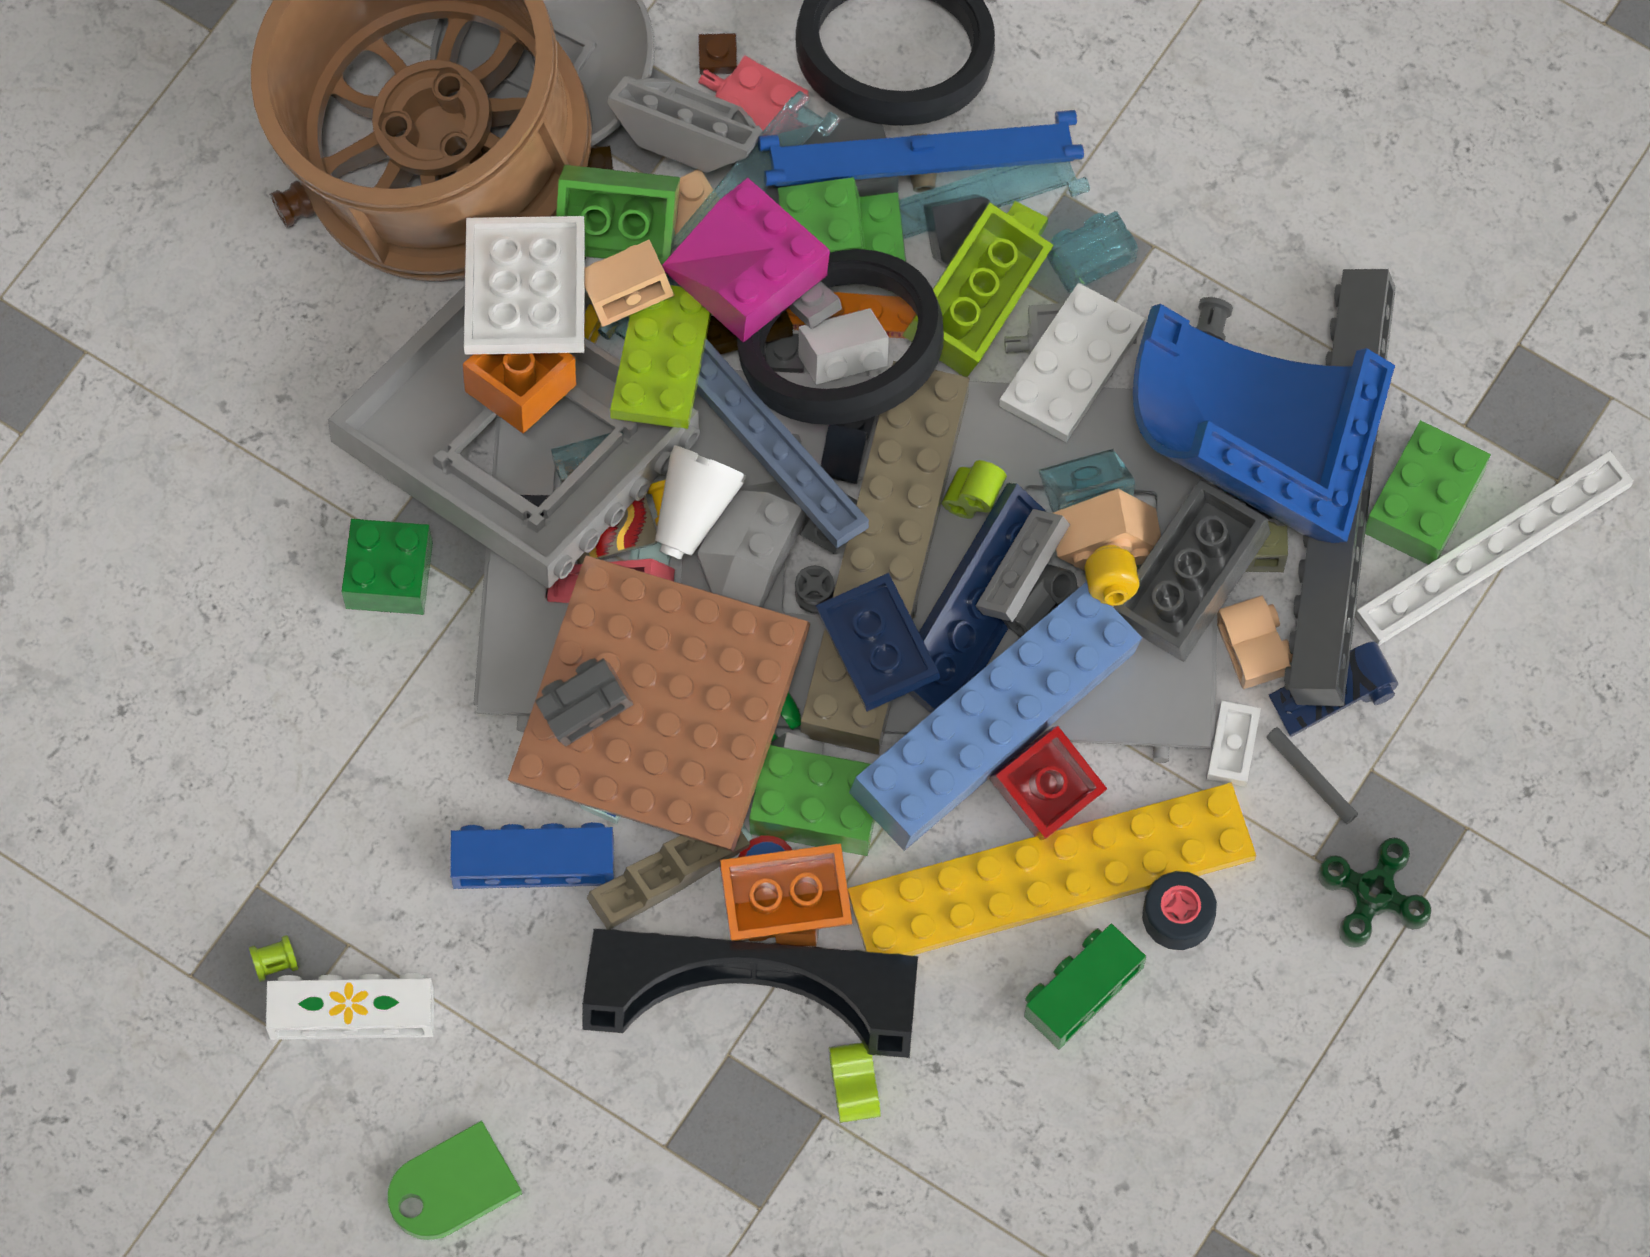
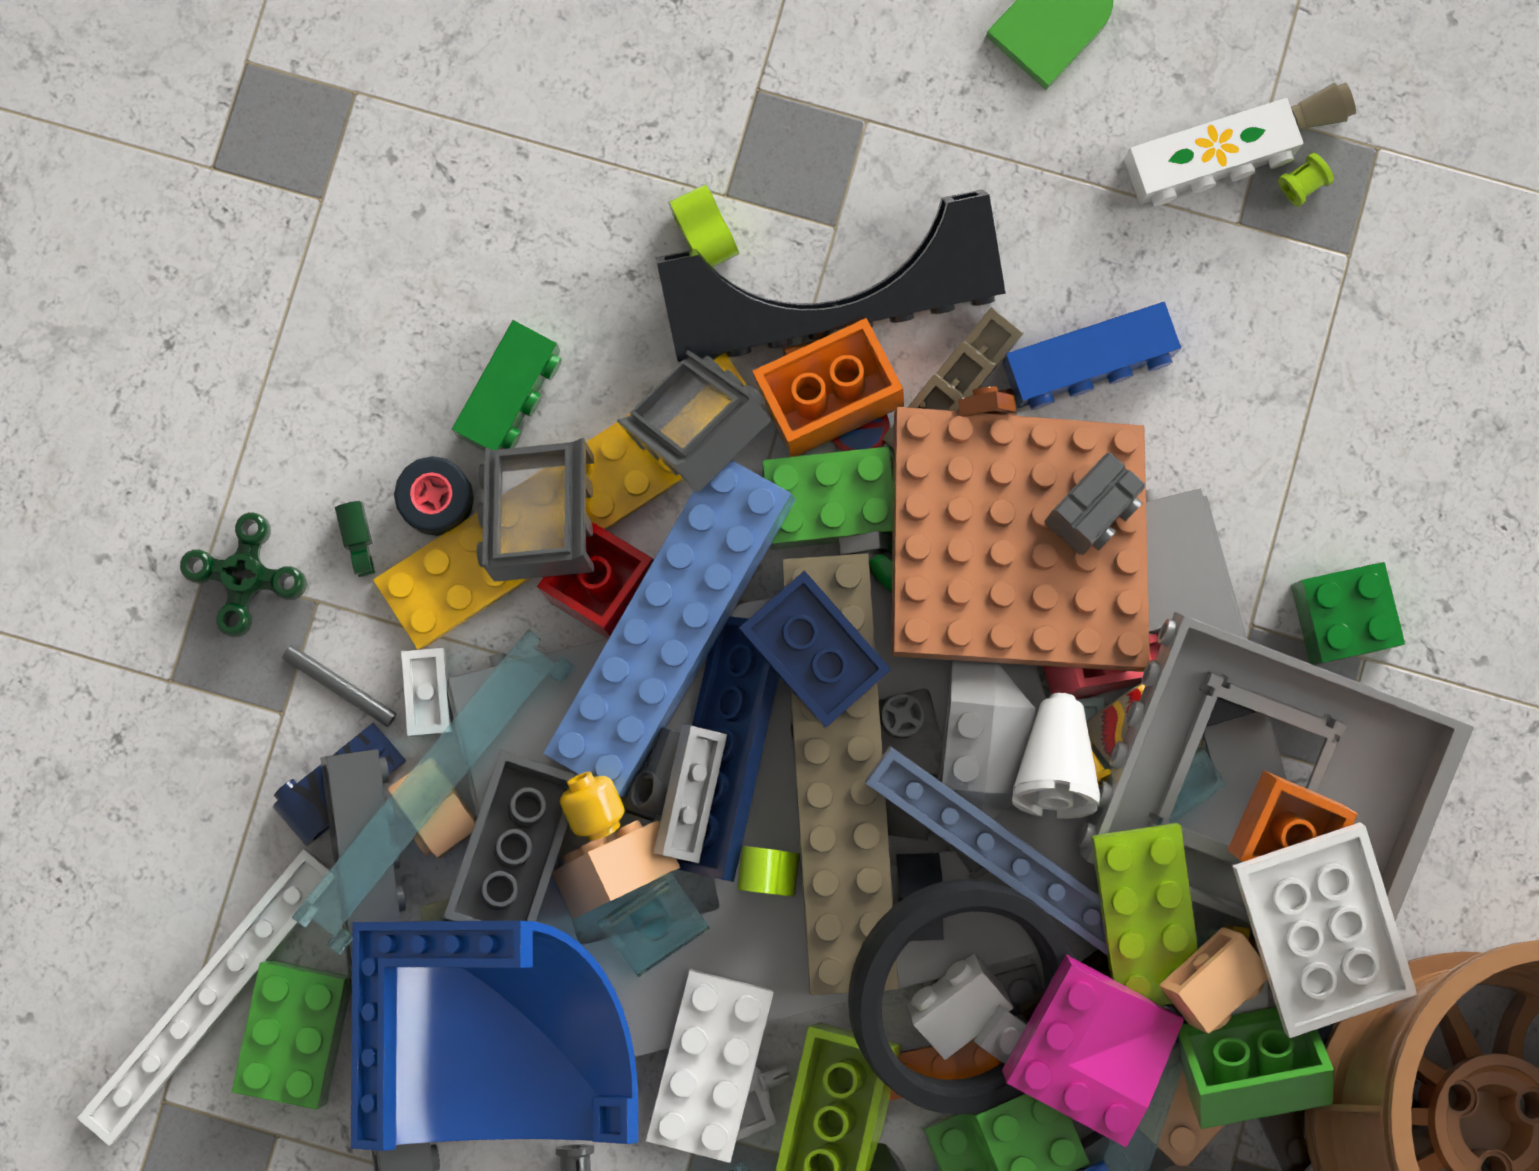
camera: 160 degrees right, 15 degrees up
(229, 1020) = (1325, 107): none -> dark tan cone
(643, 832) = (988, 401): none -> dark orange plate
(920, 877) = (697, 420): none -> dark grey window
(1089, 854) = (535, 511): none -> window
(1250, 646) = (427, 787): none -> clear light blue piece
(1261, 899) = (356, 536): none -> dark green bar

